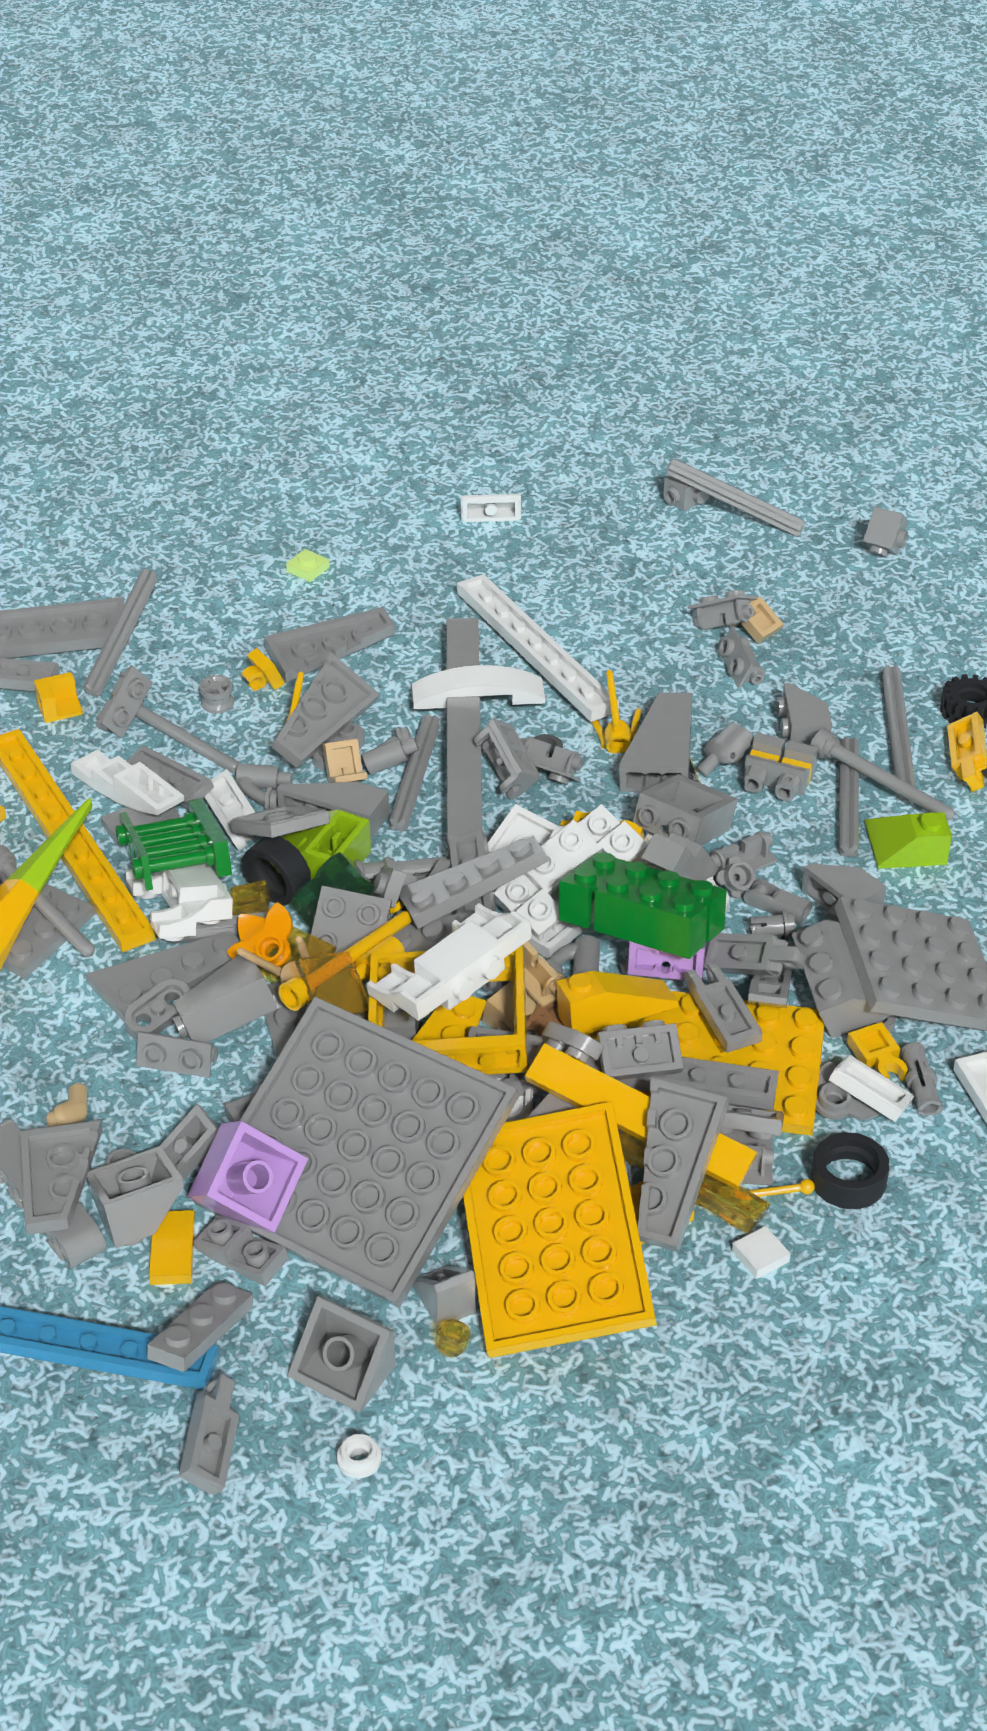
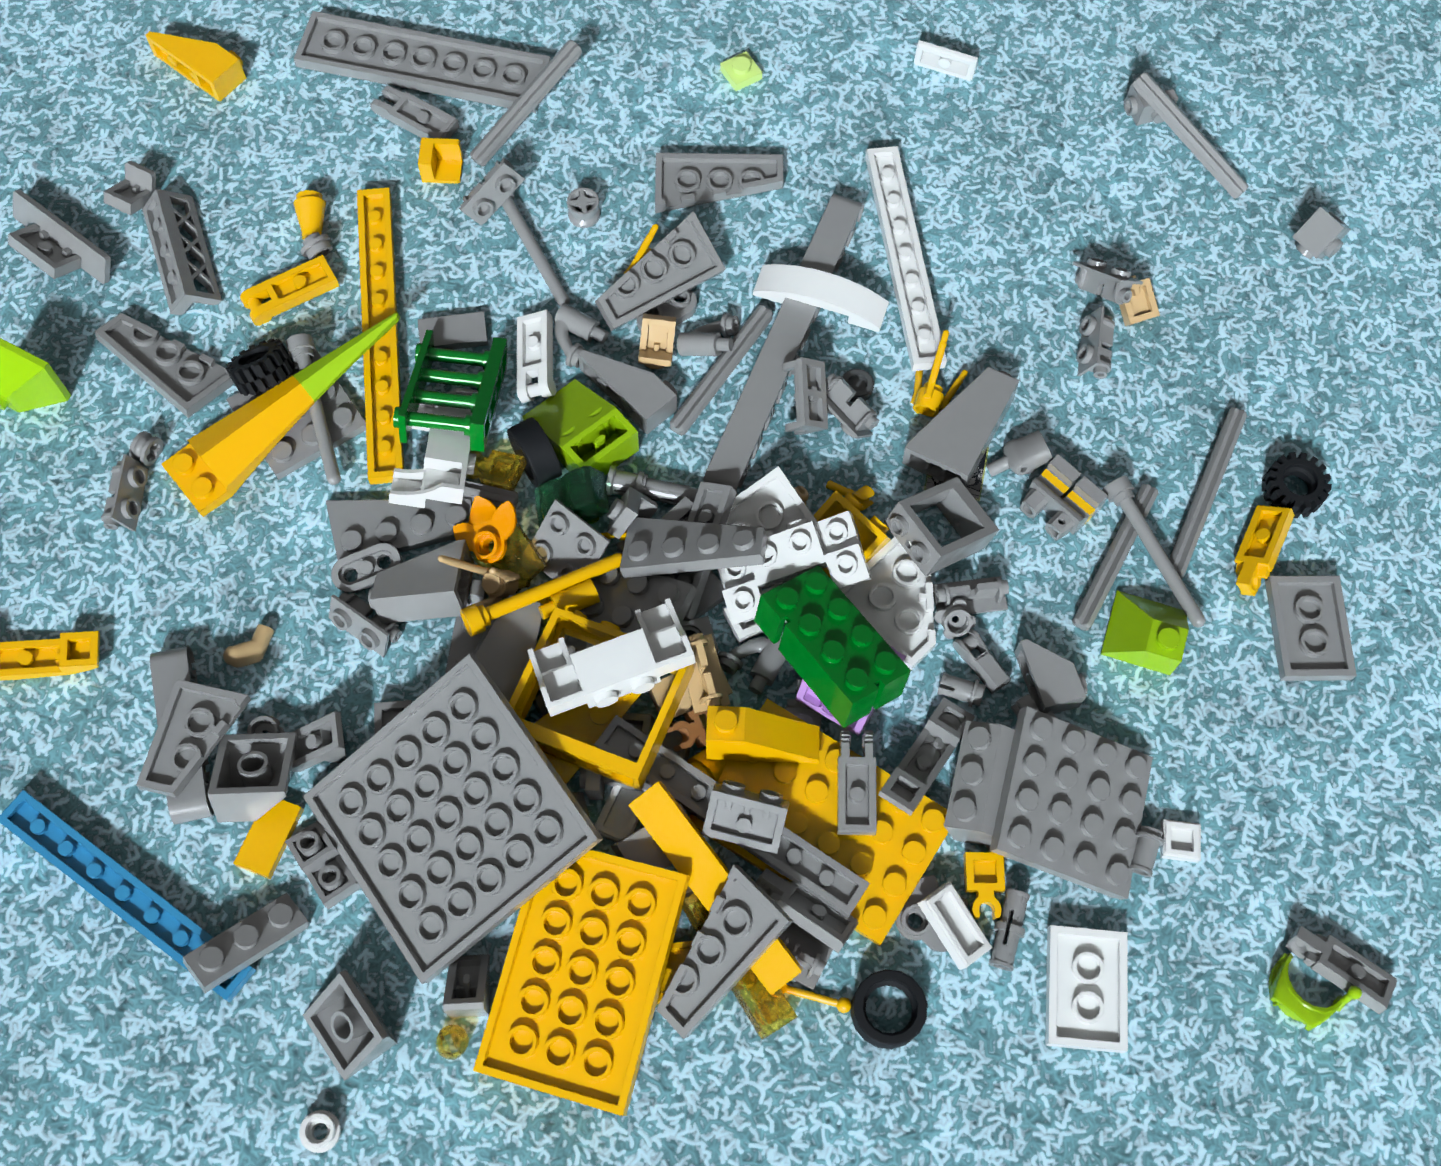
camera: 20 degrees right, 25 degrees up
(126, 783) = (454, 290): white slope -> none
(180, 777) = (494, 294): light grey tile -> none
(210, 1437) = (207, 1058): light grey hinge -> none
(247, 1176) = (343, 809): lavender slope -> none
(262, 672) = (636, 195): yellow tile -> none
(279, 821) = (556, 402): light grey tile -> none
(334, 981) = (509, 624): clear yellow piece -> none
(572, 1042) = (686, 787): light grey plate -> none
(680, 856) = (894, 601): light grey slope -> none
(752, 954) = (920, 728): light grey hinge -> none
(761, 1252) = (765, 1062): white tile -> none
(801, 714) = (1119, 447): light grey slope -> none

